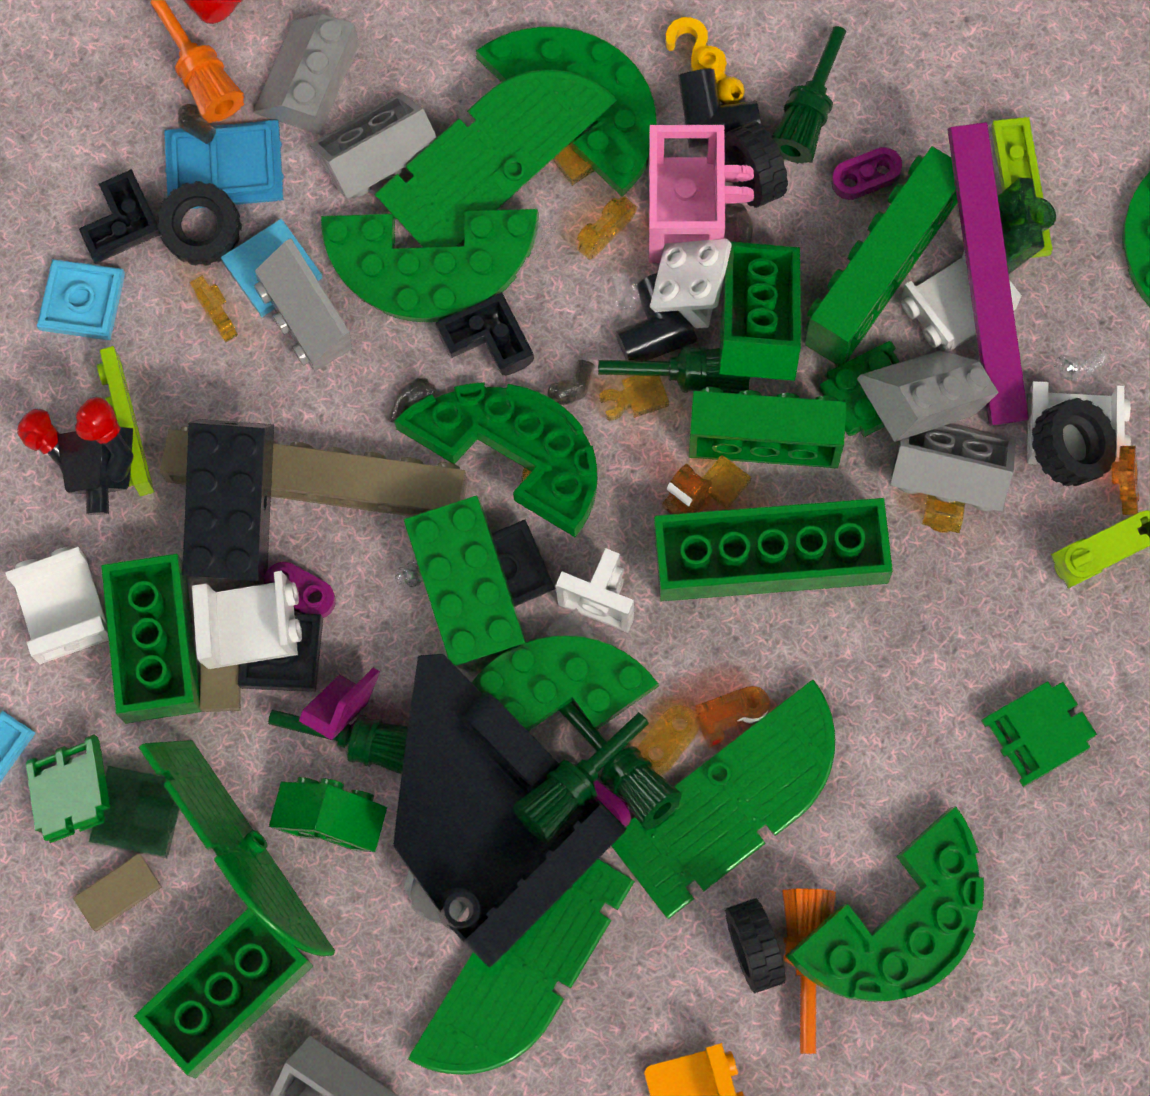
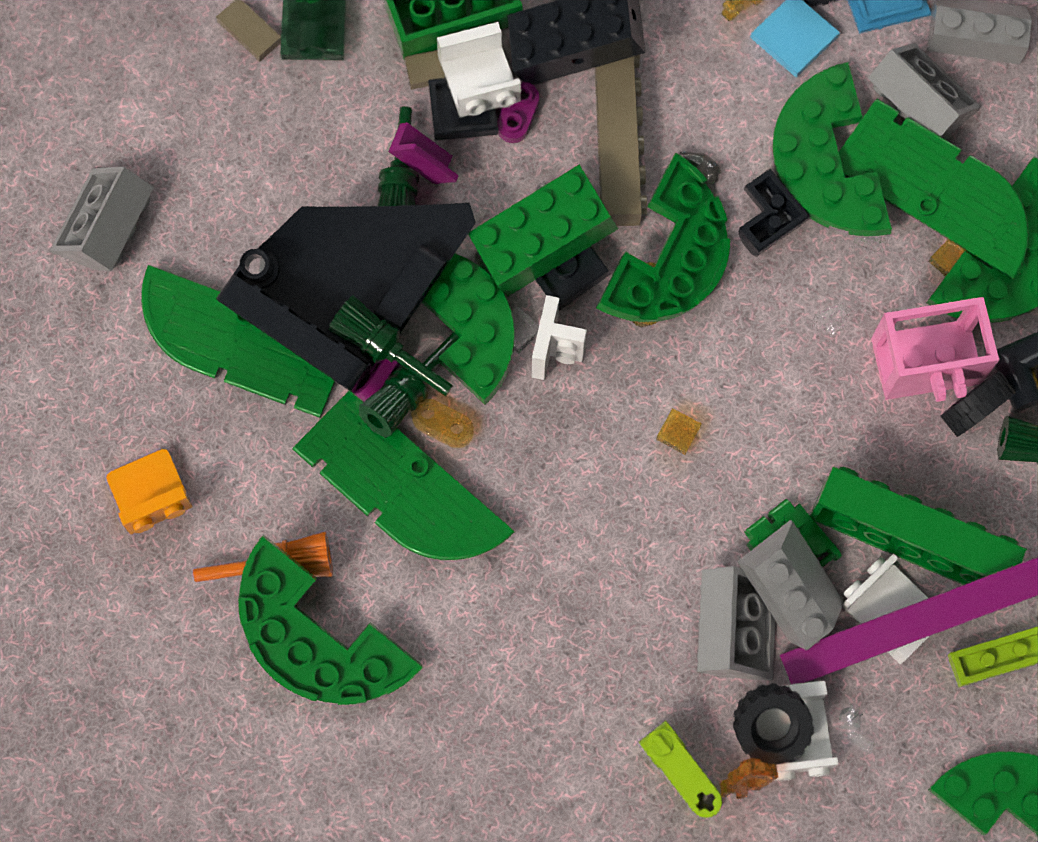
camera: 75 degrees right, 0 degrees up
(222, 993) = (179, 117): green brick -> none
(238, 847) = (288, 105): green door -> none
(302, 307) = (759, 60): light grey slope -> none
(328, 813) = (329, 161): green brick -> none
(575, 387) = (738, 293): clear smoke arm -> none
(614, 218) = (882, 287): clear yellow plate -> none
(639, 394) = (743, 349): clear yellow plate -> none
(658, 333) = (810, 361): black brick -> none
(687, 492) = (658, 399): clear orange leg -> none
(691, 279) = (854, 368): white bracket -> none
(691, 369) = (774, 386): dark green piece -> none
(731, 710) = (475, 468): clear orange leg -> none
(743, 222) = (919, 409): clear smoke arm -> none
(755, 945) = (273, 513): black tyre -> none
(761, 312) = (835, 426): green brick -> none
(767, 428) = (730, 453): green brick -> none
(772, 549) = (622, 478): green brick -> none
(864, 172) = (1002, 508): magenta plate -> none
(943, 515) = (684, 621): clear yellow plate -> none
(1023, 221) = (962, 644): clear green plate -> none
(1041, 731) = (504, 735): green plate -> none

